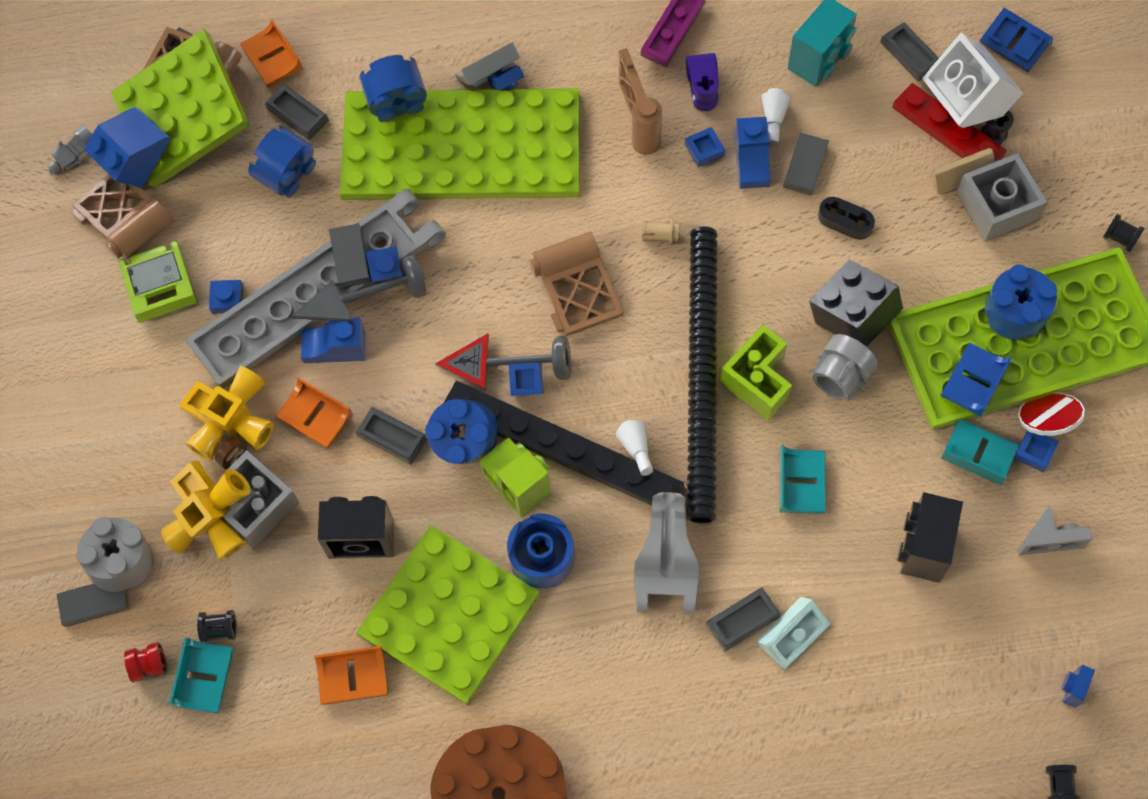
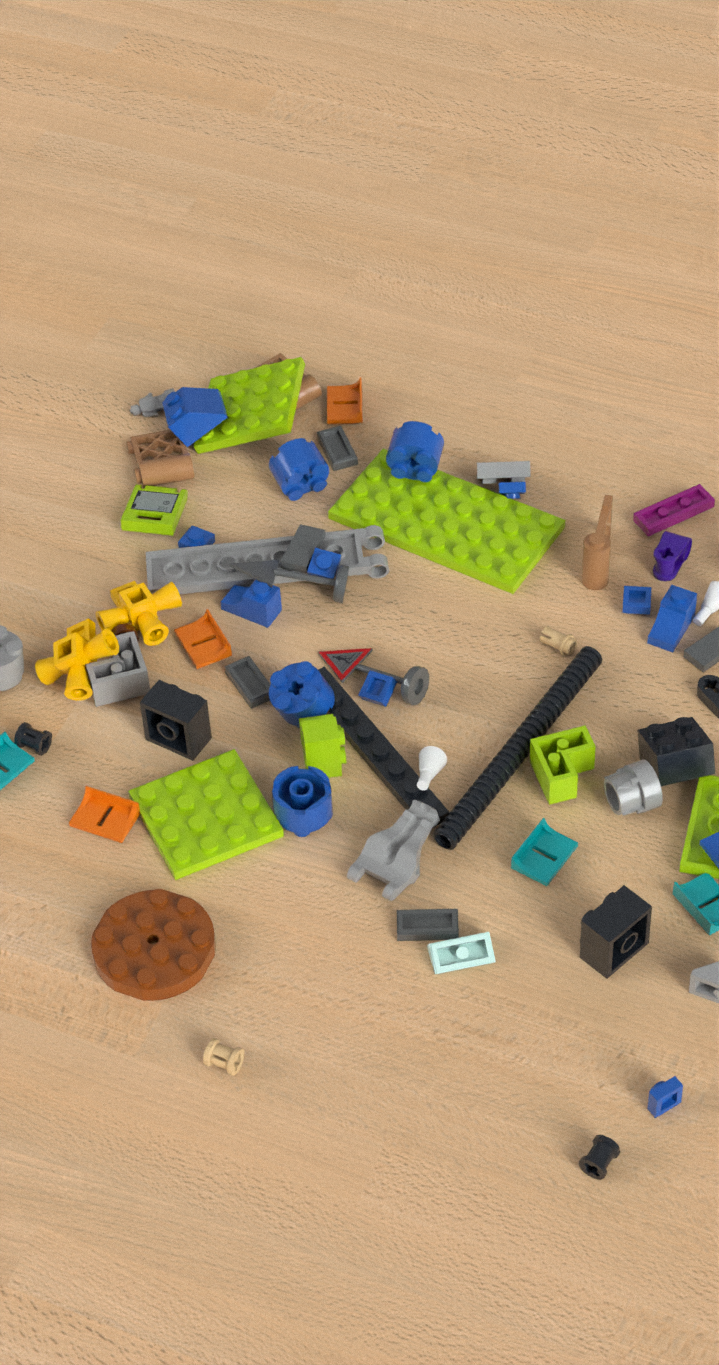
camera: 30 degrees right, 20 degrees down
(568, 260) = (468, 629): medium nougat piece -> none

